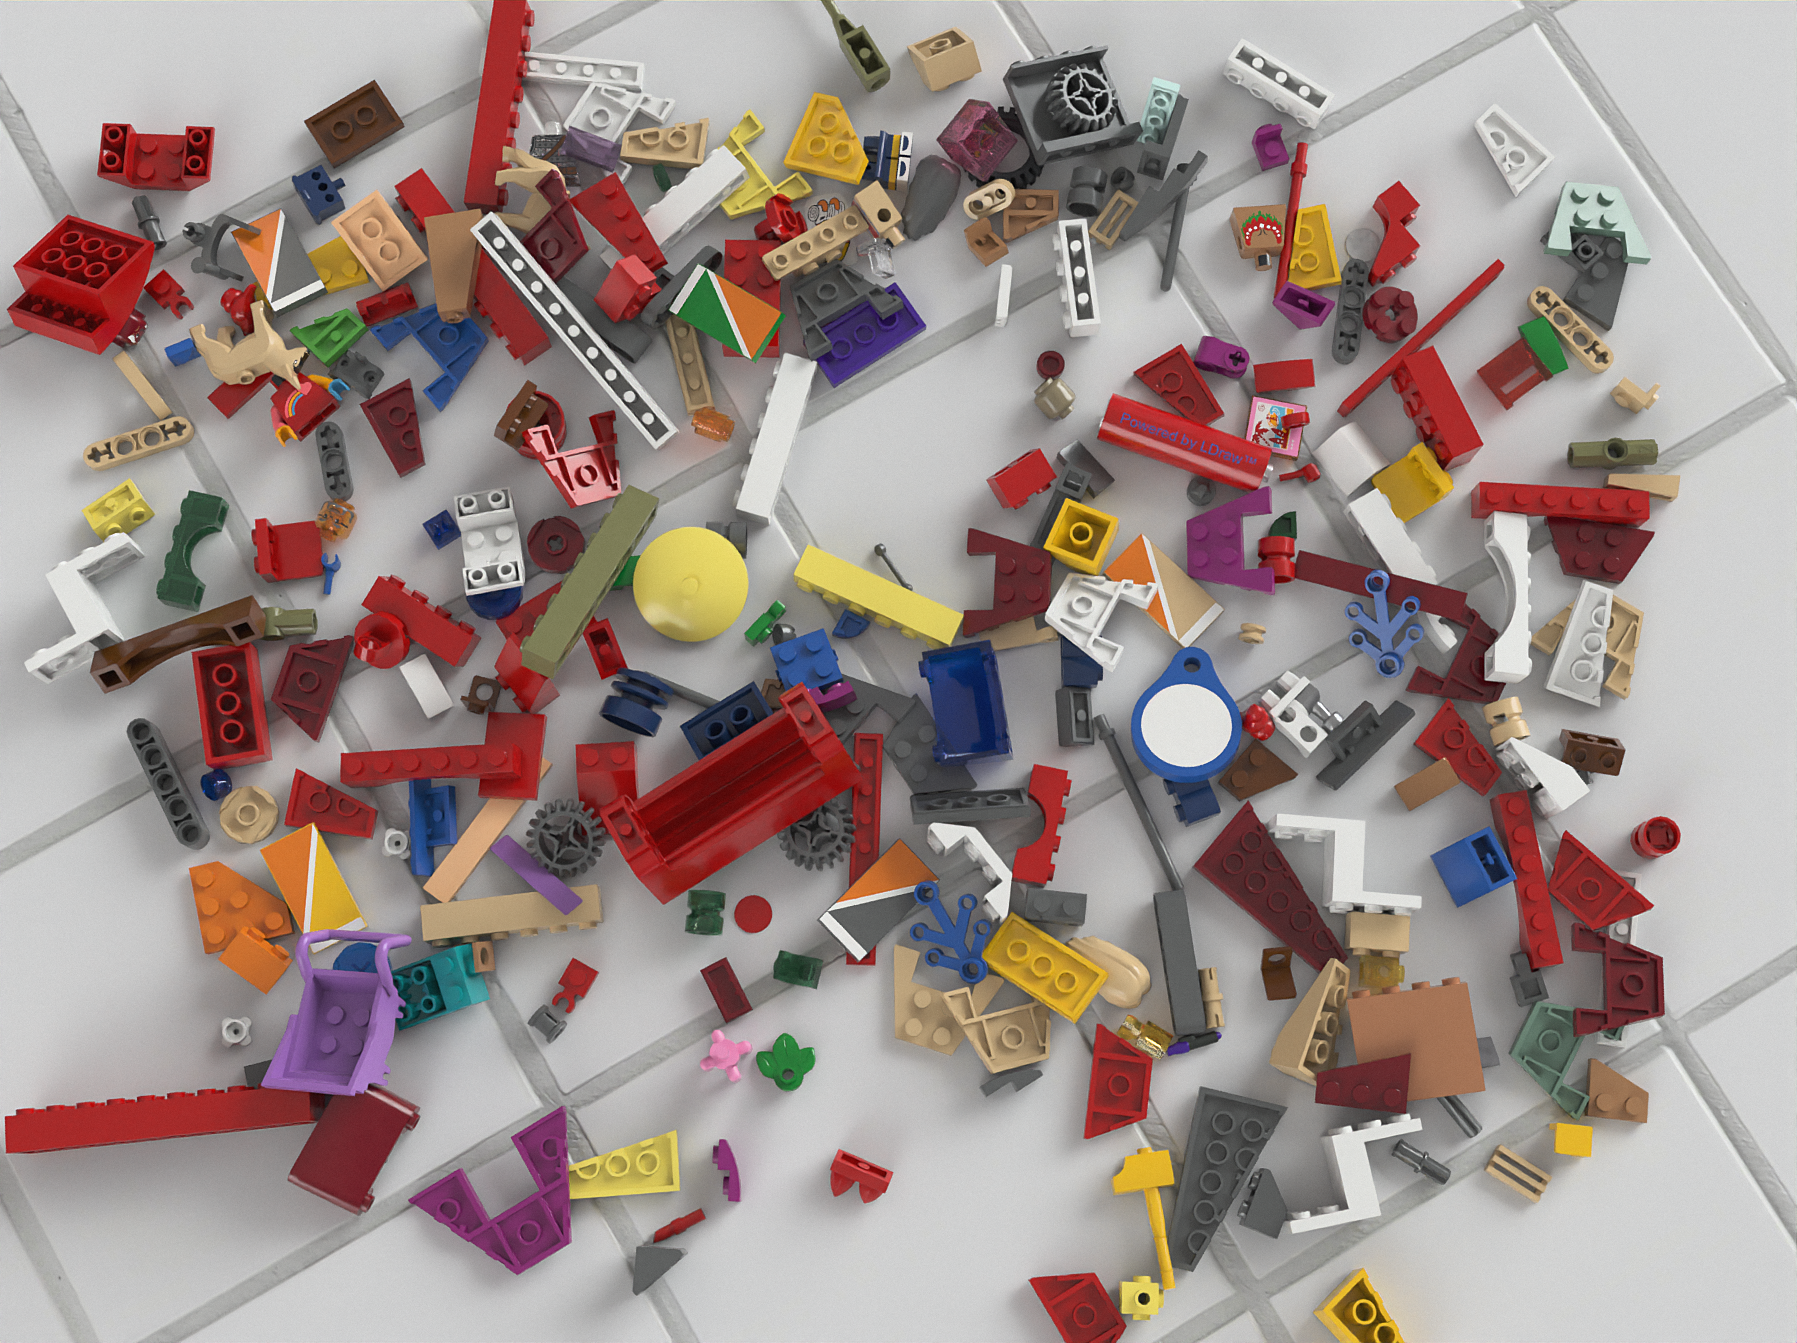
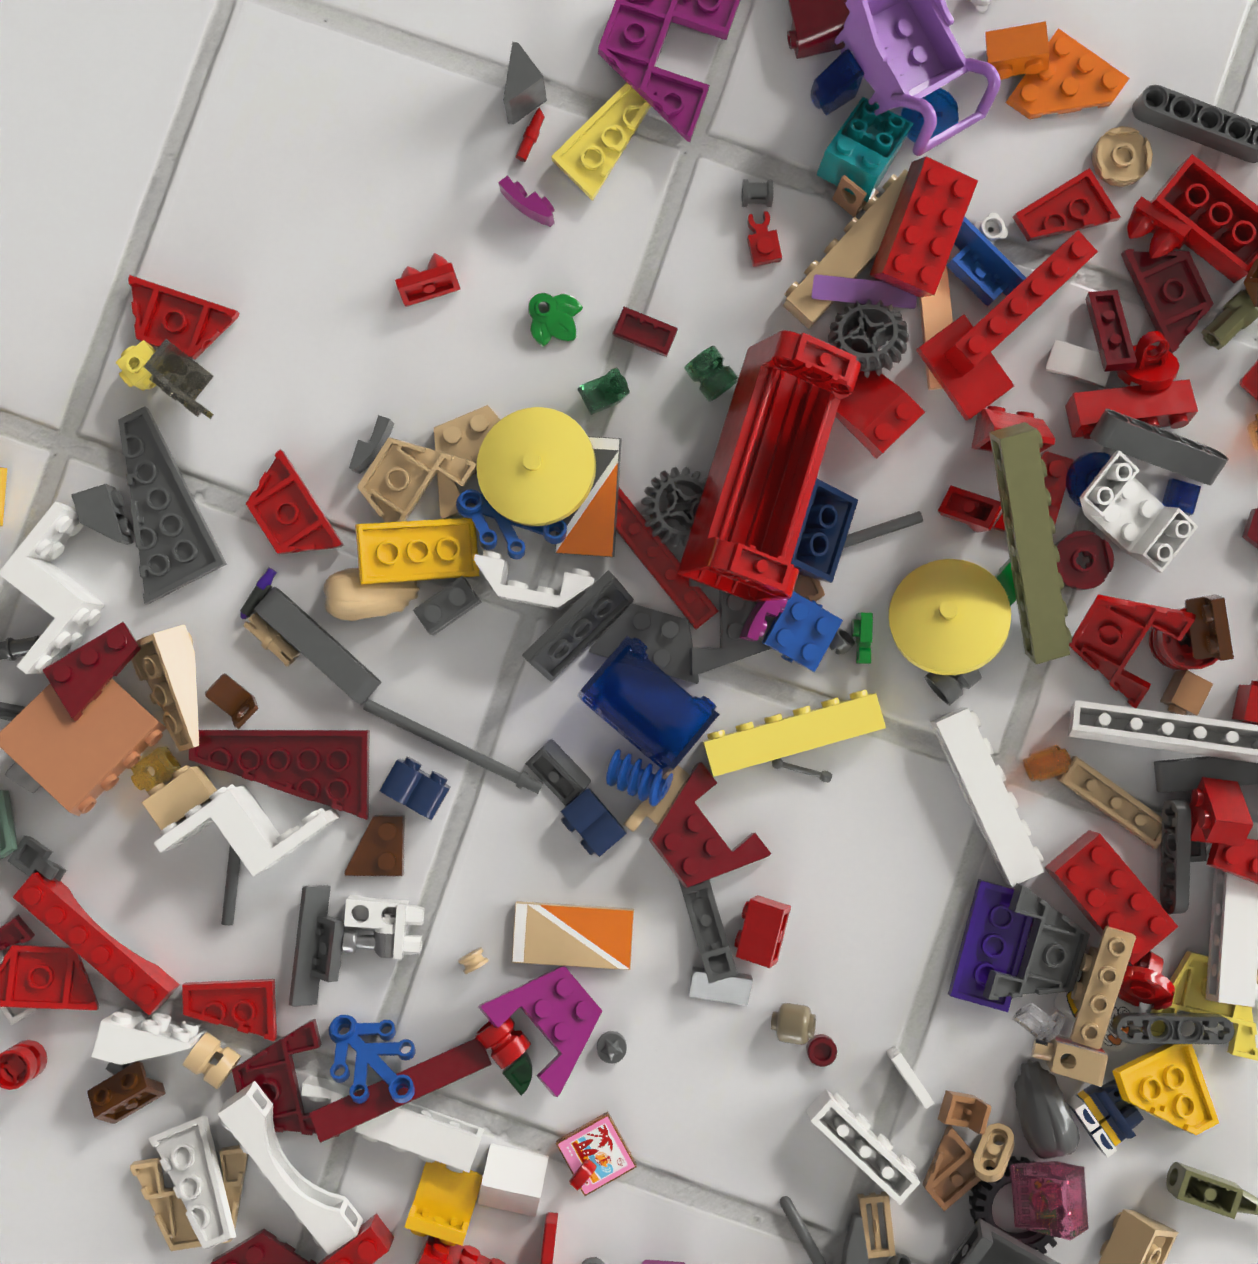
camera: 140 degrees right, 10 degrees up
(216, 784) = (1168, 152): clear blue tile -> none
(277, 722) = (1167, 230): none -> red tile
(312, 884) = (1025, 143): tile -> none
(330, 570) = (1236, 390): blue hand -> none
(383, 689) = (1111, 330): none -> dark red plate
(414, 1053) = (837, 83): none -> clear blue slope
(430, 574) = (1158, 447): none -> dark grey beam
(453, 880) = (923, 227): none -> red brick
(479, 706) = (1030, 383): reddish brown bracket -> none
(570, 389) = (1186, 693): none -> medium nougat brick
(638, 697) = (907, 486): dark blue wheel -> none
(725, 1055) = (601, 278): bright pink plant -> none
(727, 313) = (1121, 863): tile -> none
(753, 914) = (675, 408): red sticker -> none
(792, 175) = (1172, 1032): none -> dark grey beam
(850, 625) = (796, 694): blue tile -> none
(899, 952) = (536, 466): none -> light yellow dish
(1020, 660) = (636, 779): none -> blue piece
(1046, 789) = (493, 627): red arch -> none
(1082, 537) = (673, 922): yellow slope -> none
(1084, 608) = (622, 866): white wing -> none
(1087, 191) = (917, 1228): dark grey wheel -> none
(1116, 1259) = (179, 377): none -> clear smoke bracket
(1148, 1036) = (293, 569): clear yellow plate -> none
(1148, 1173) = (210, 464): yellow piece -> none
(1181, 386) = (700, 1124): red wing -> none
(1185, 444) = (655, 1075): red piece -> none
(1186, 721) = (464, 841): piece -> none
(1218, 356) = (691, 1175): magenta piece -> none
(1257, 722) = (412, 887): red animal -> none
(1284, 375) = (624, 1206): red slope -> none
(1309, 471) = (536, 1139): red hand -> none
(1374, 855) = (231, 888): none -> dark grey bar
(1427, 784) = (235, 954): medium nougat slope -> none
(1473, 867) = (145, 917): blue slope -> none

